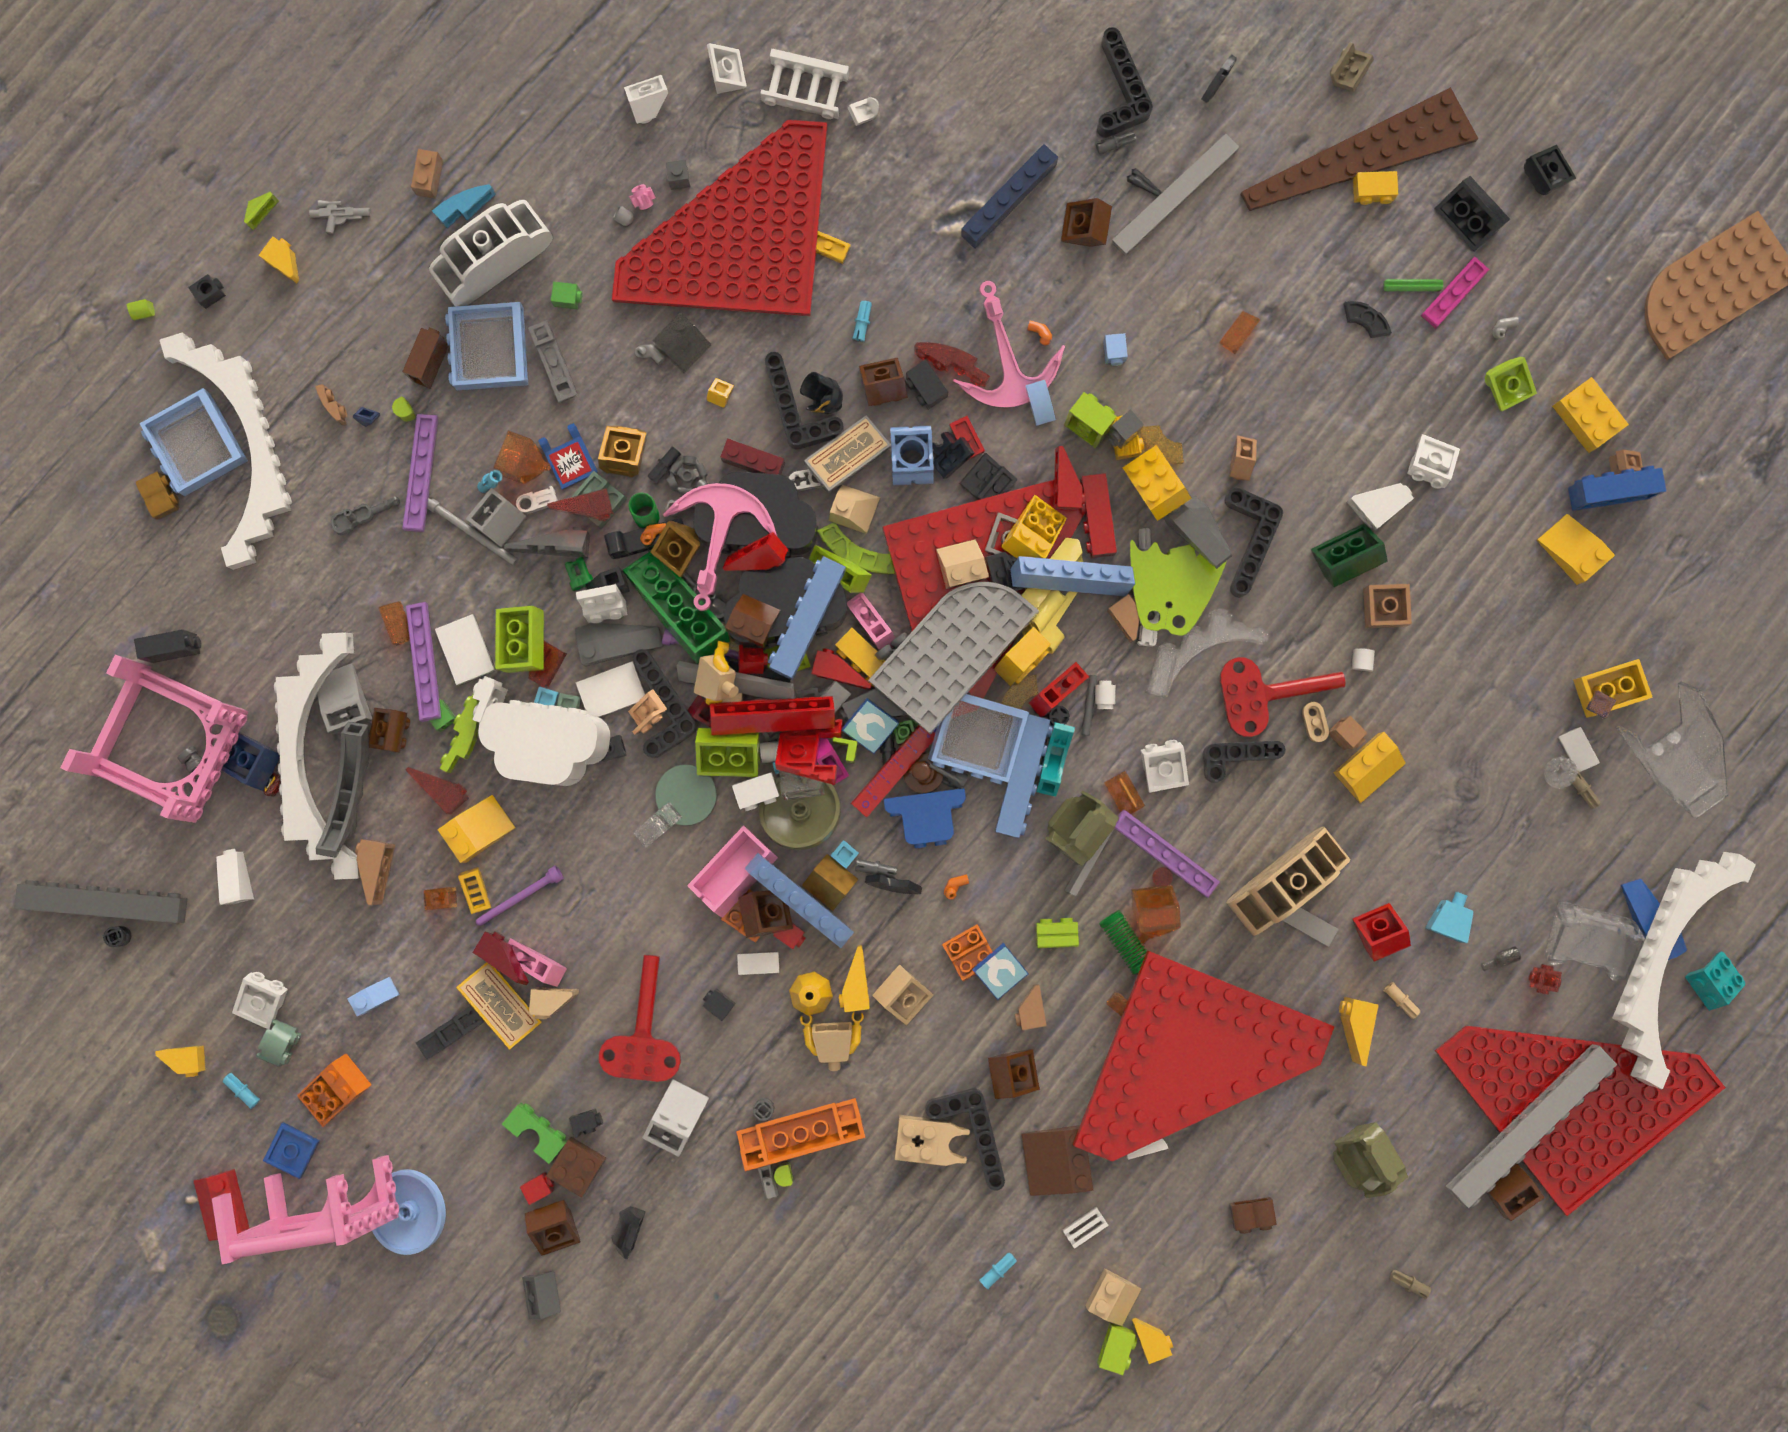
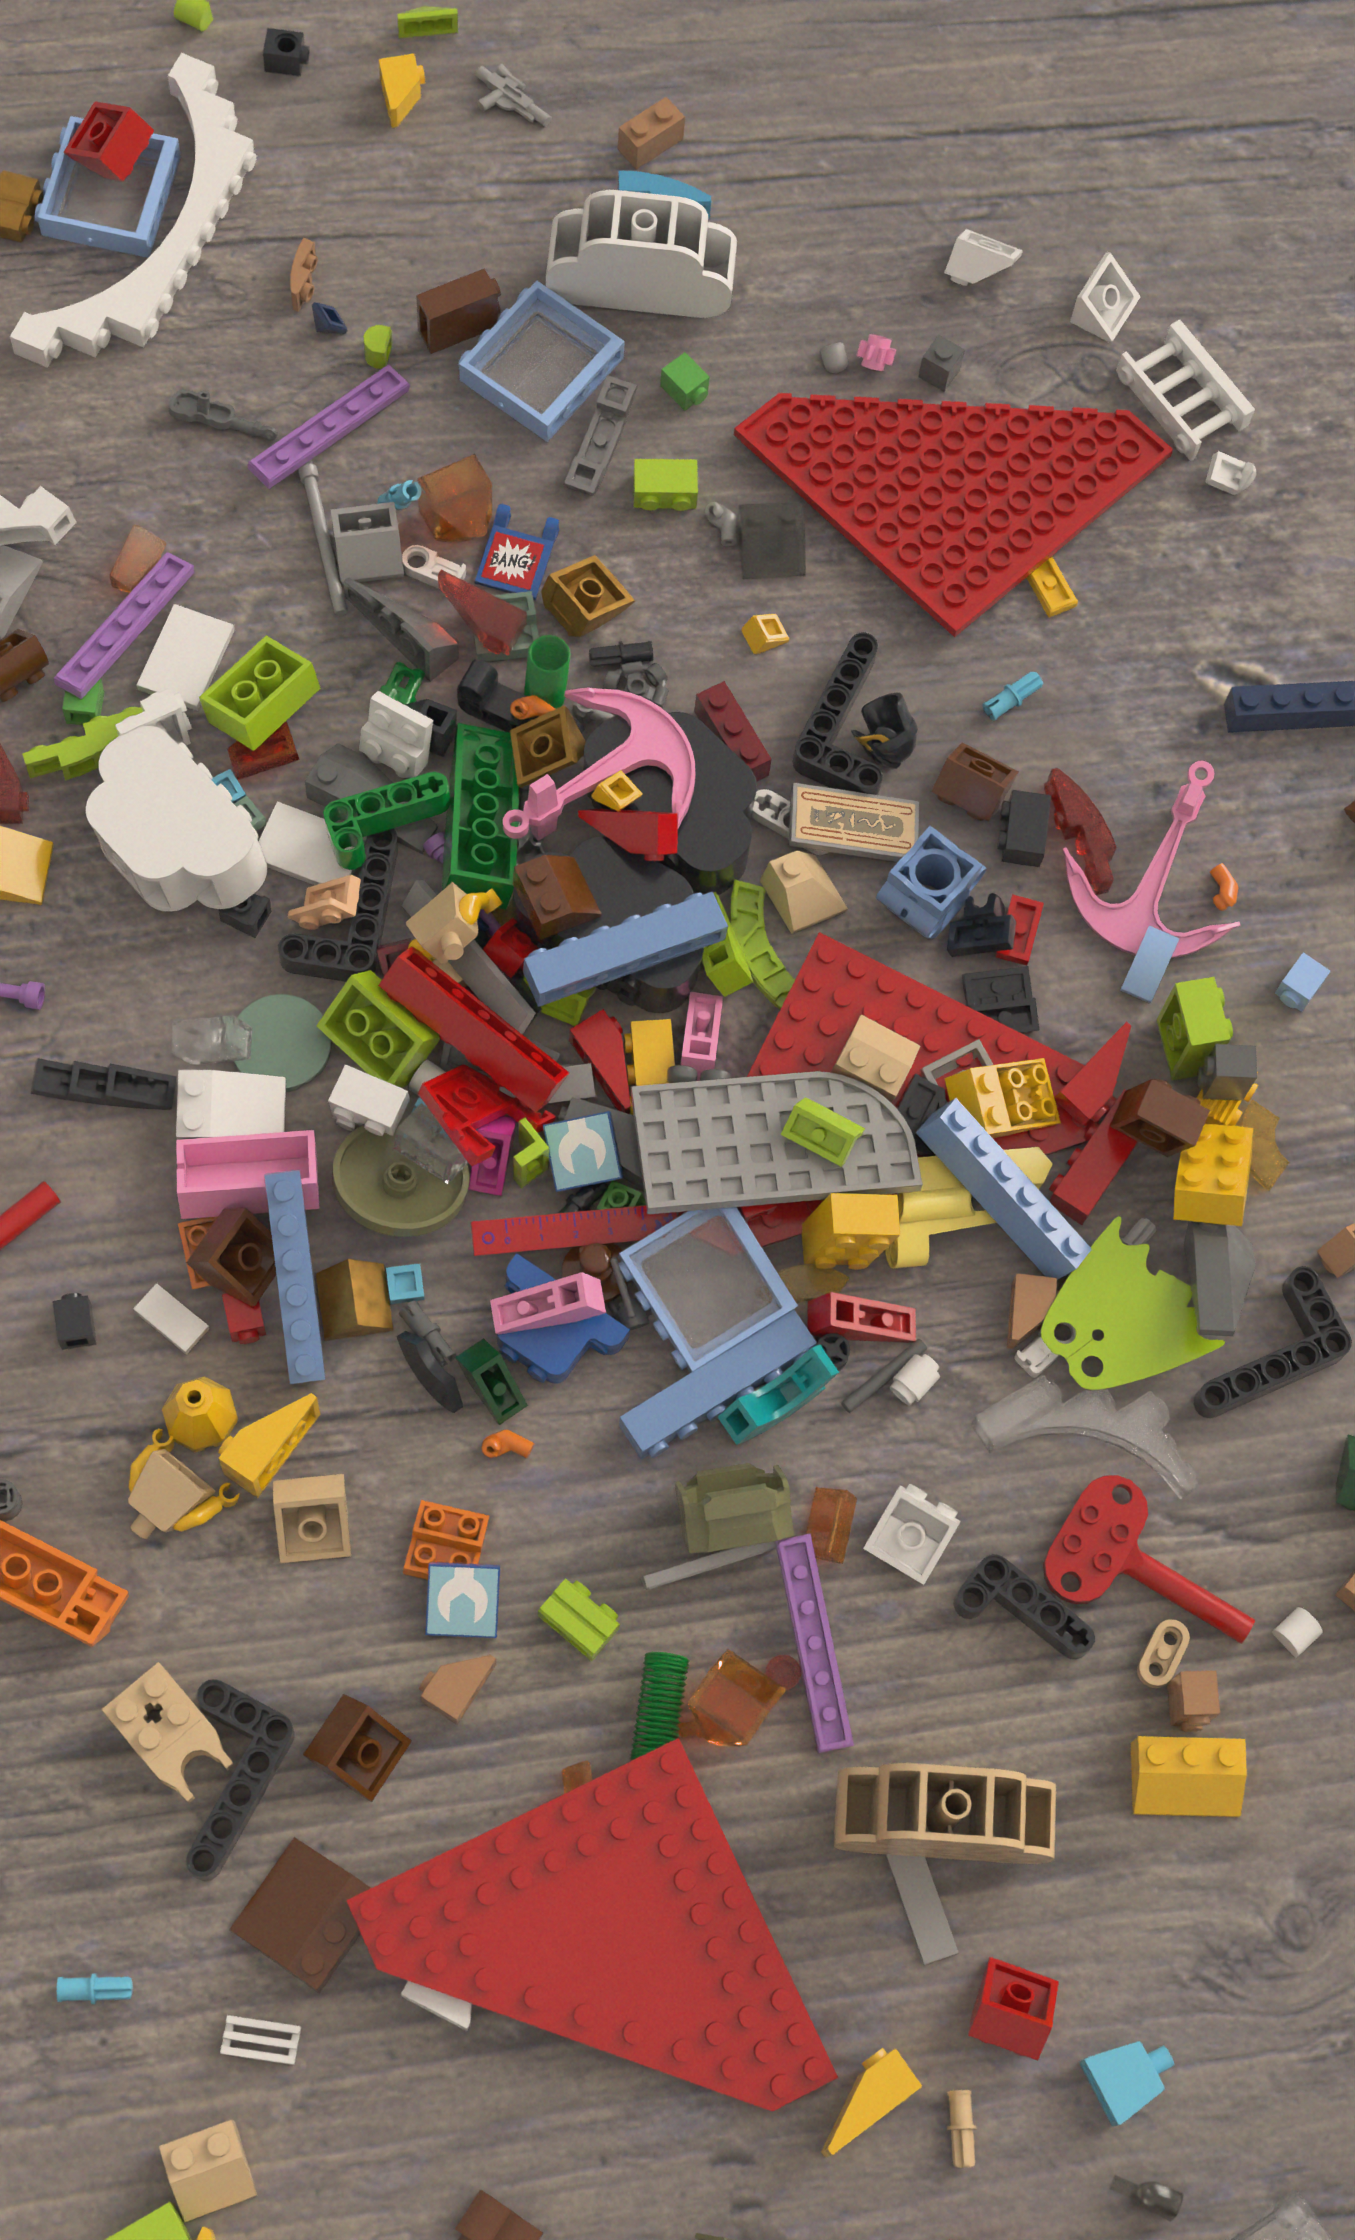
camera: 35 degrees right, 15 degrees down
(173, 421) = (109, 140): none -> red slope
(605, 358) = (665, 484): none -> lime brick
(626, 886) = (103, 1085): none -> black slope
(636, 646) = (425, 797): none -> green beam
(694, 847) = (229, 1104): none -> white slope
(734, 545) = (616, 792): none -> yellow slope
(921, 812) = (549, 1304): none -> bright pink slope
(923, 864) = (491, 1380): none -> dark green slope
(973, 625) = (822, 1131): none -> lime panel
(1113, 479) = (1160, 1117): none -> reddish brown brick

